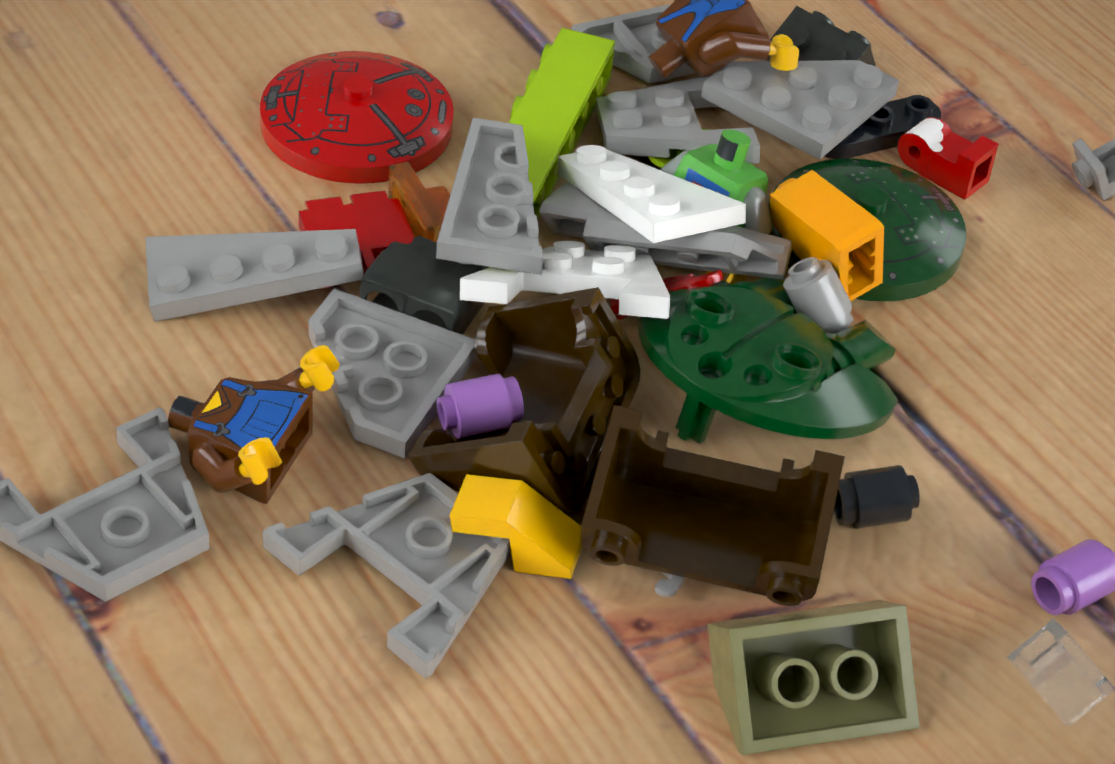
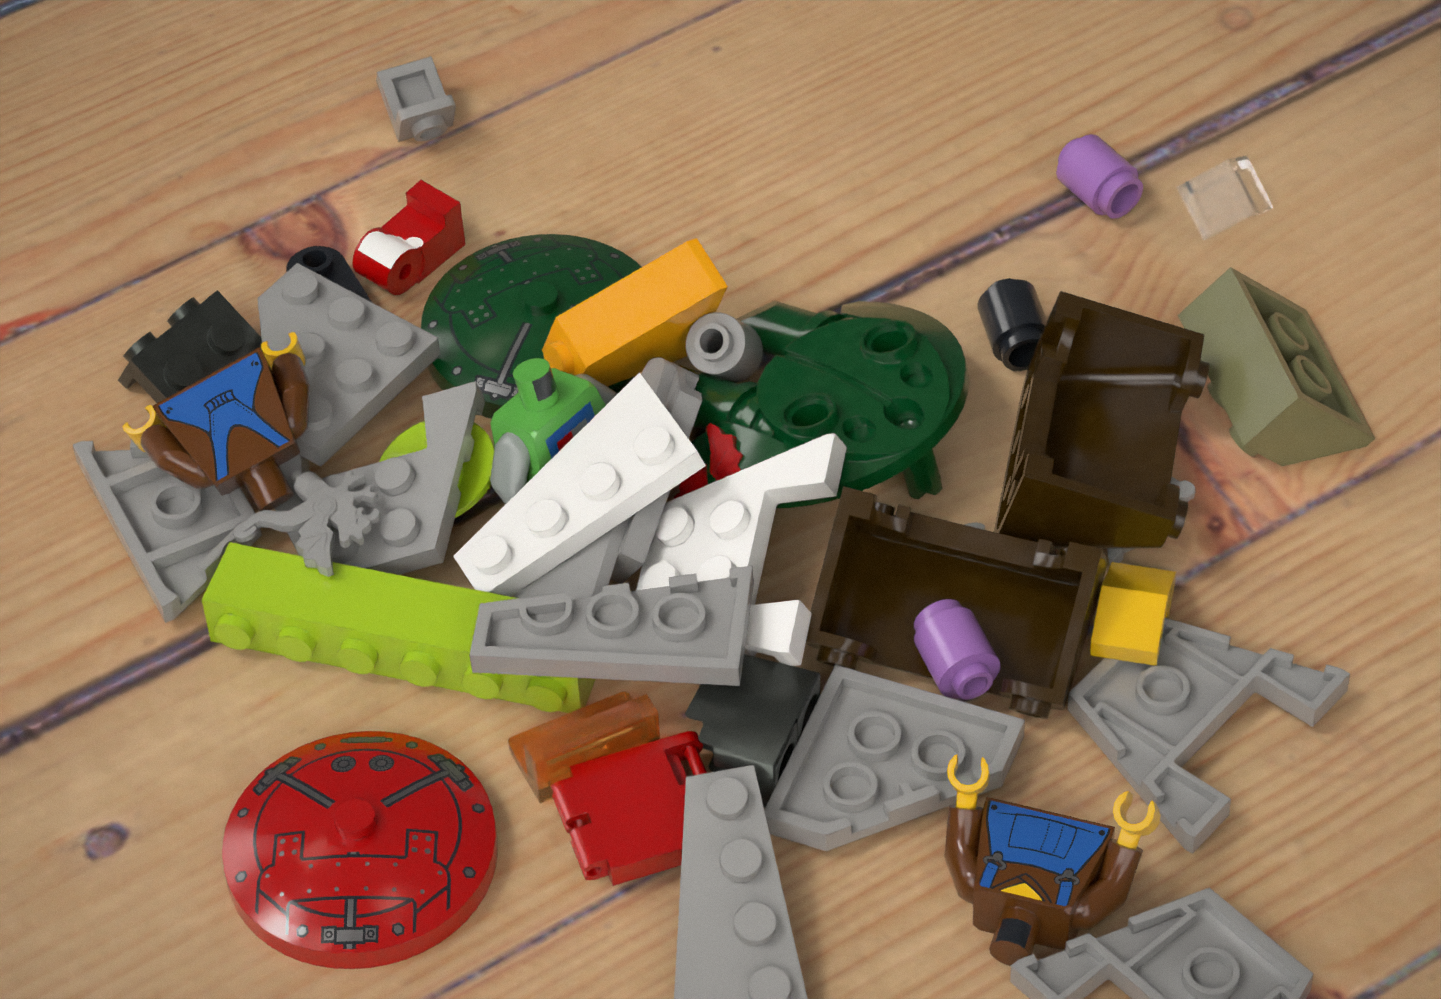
camera: 85 degrees left, 5 degrees up
(633, 79) = (314, 517): none -> light grey piece

